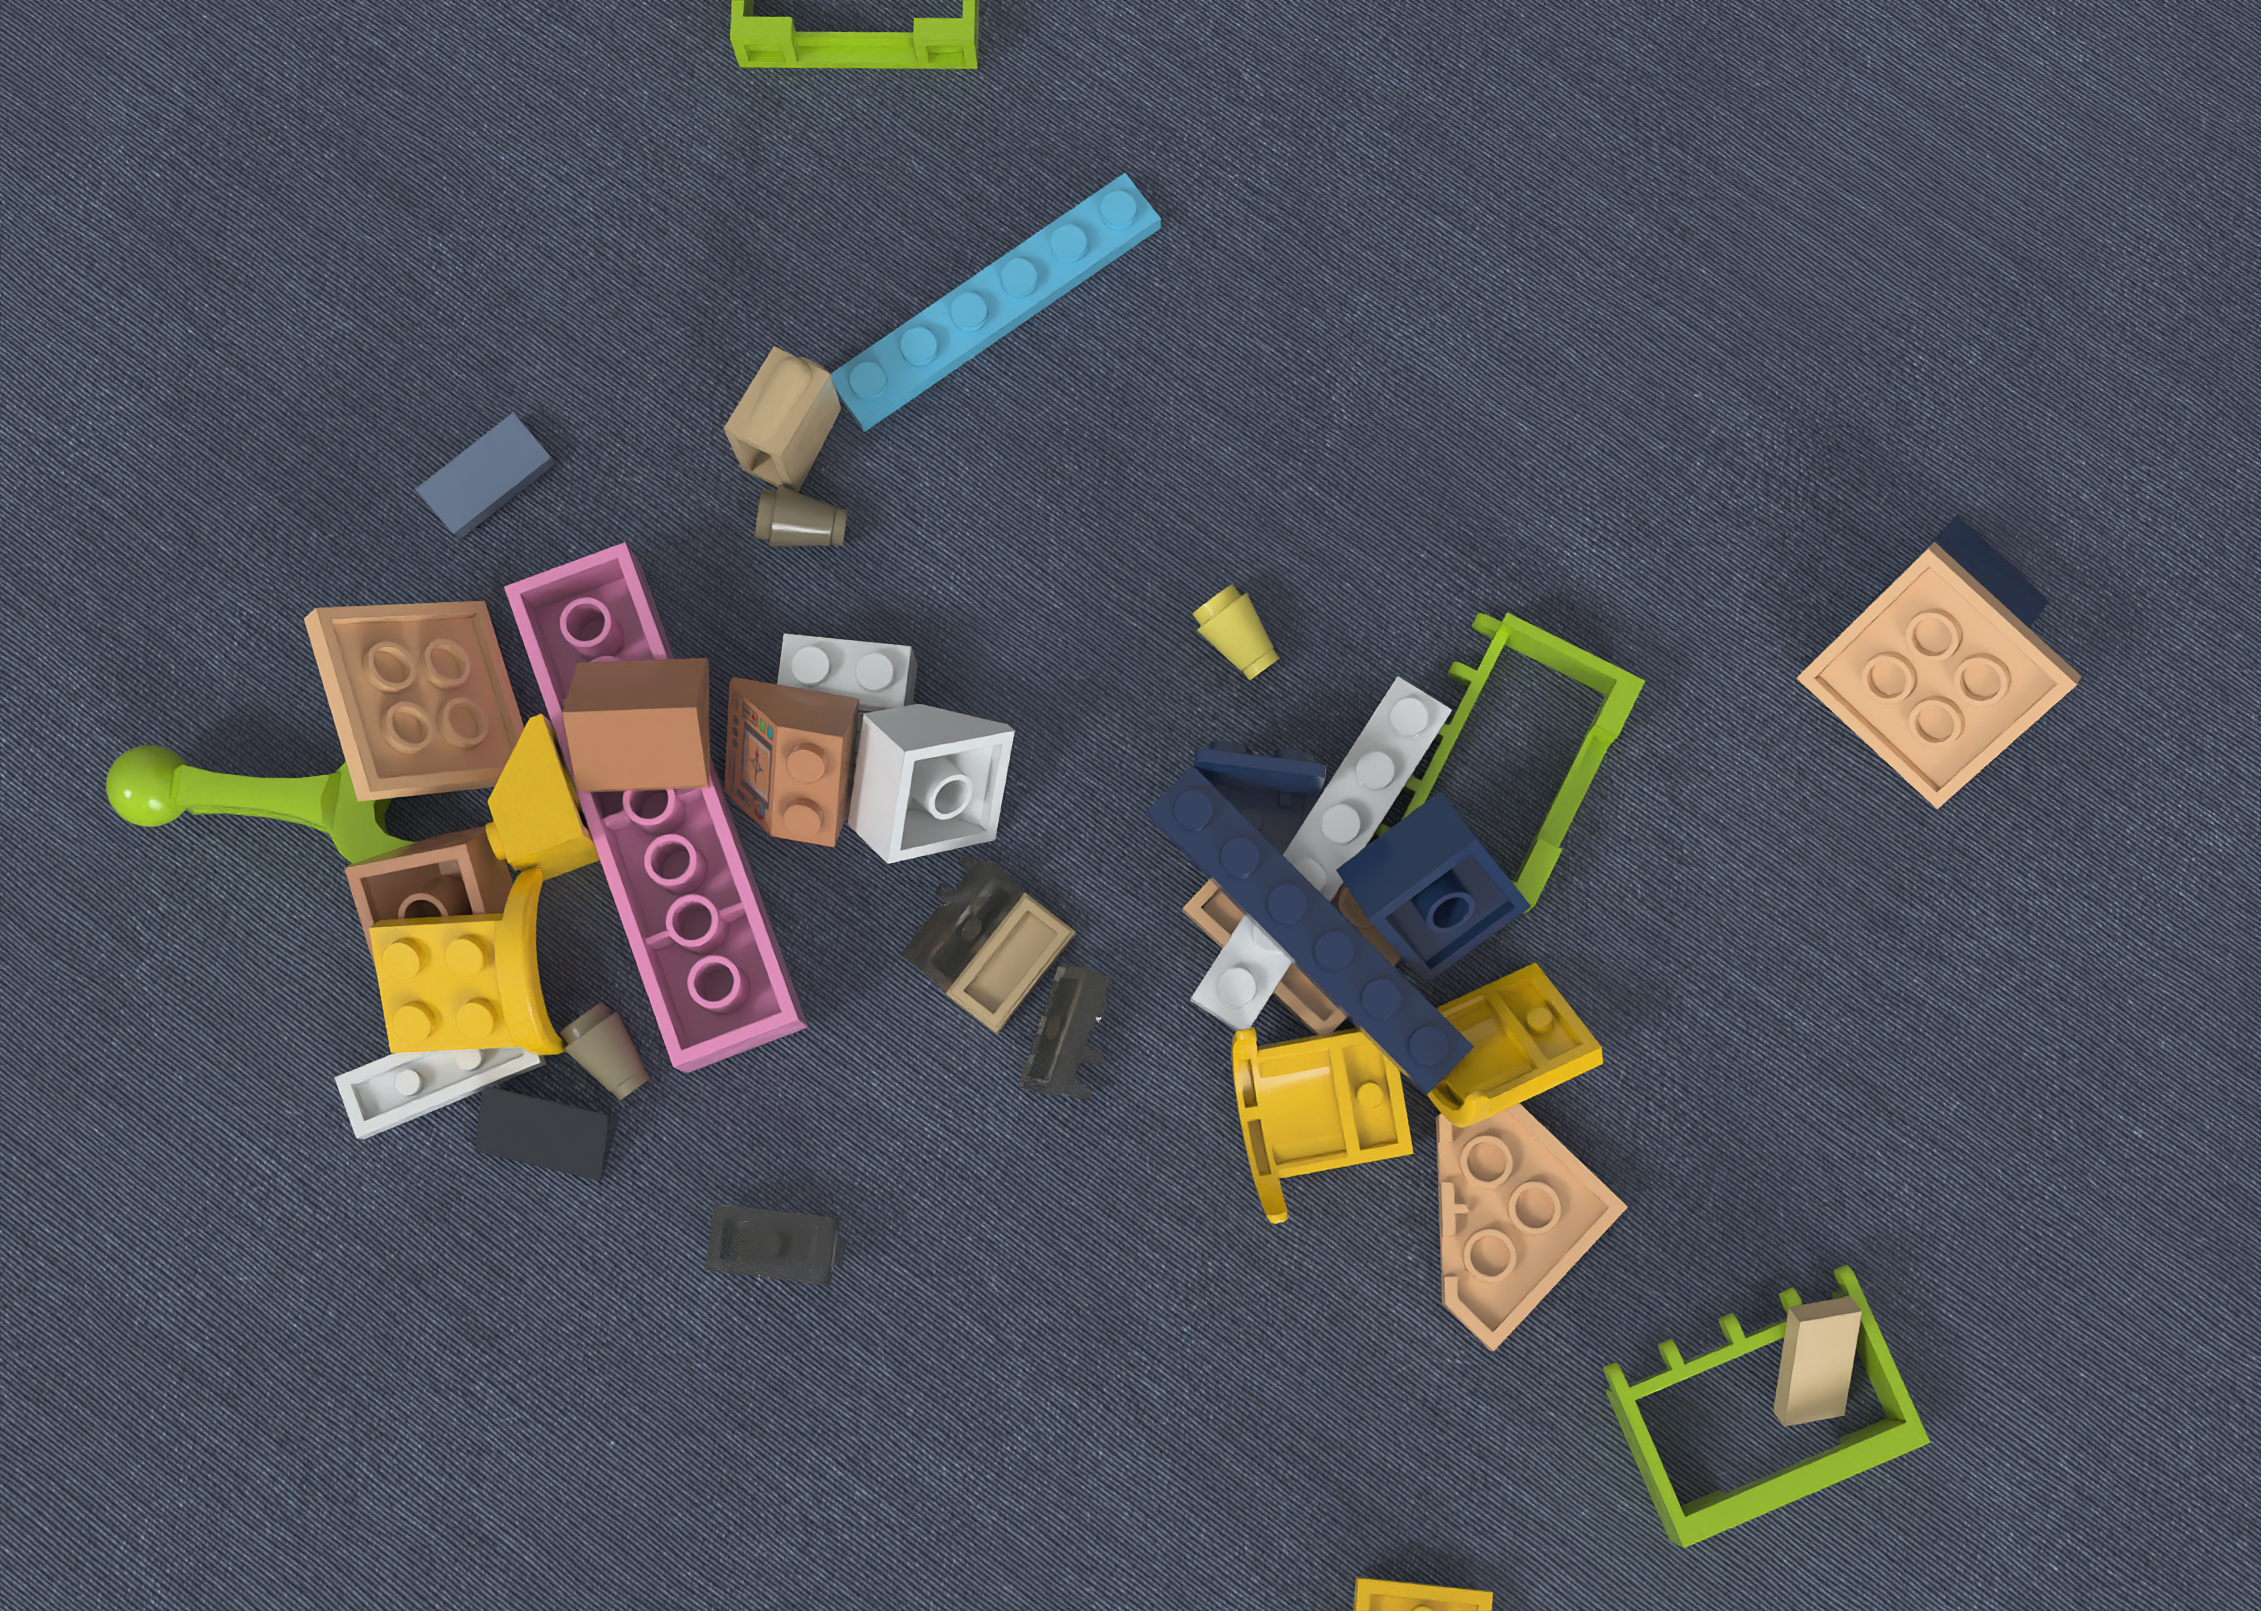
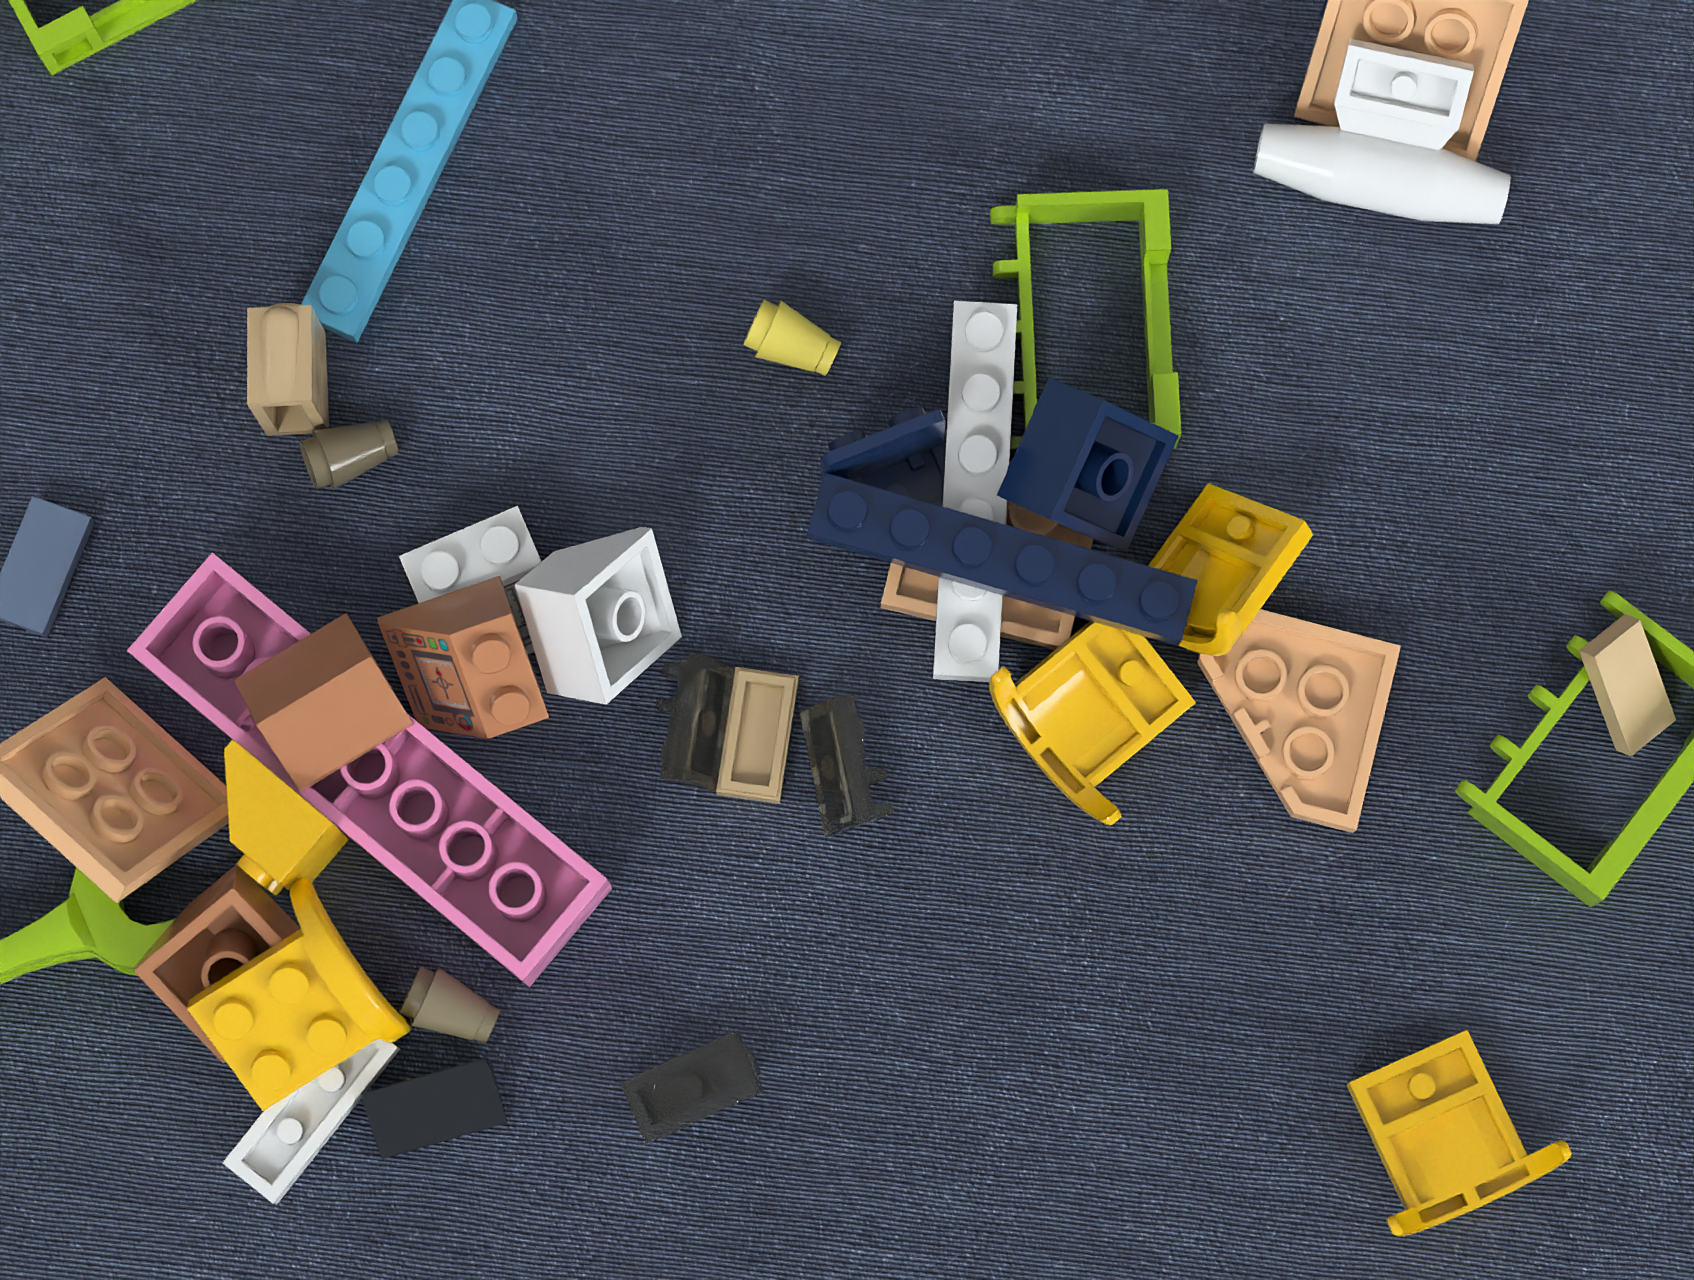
camera: 30 degrees left, 0 degrees up
(1867, 751) = (1388, 151): none -> white plate

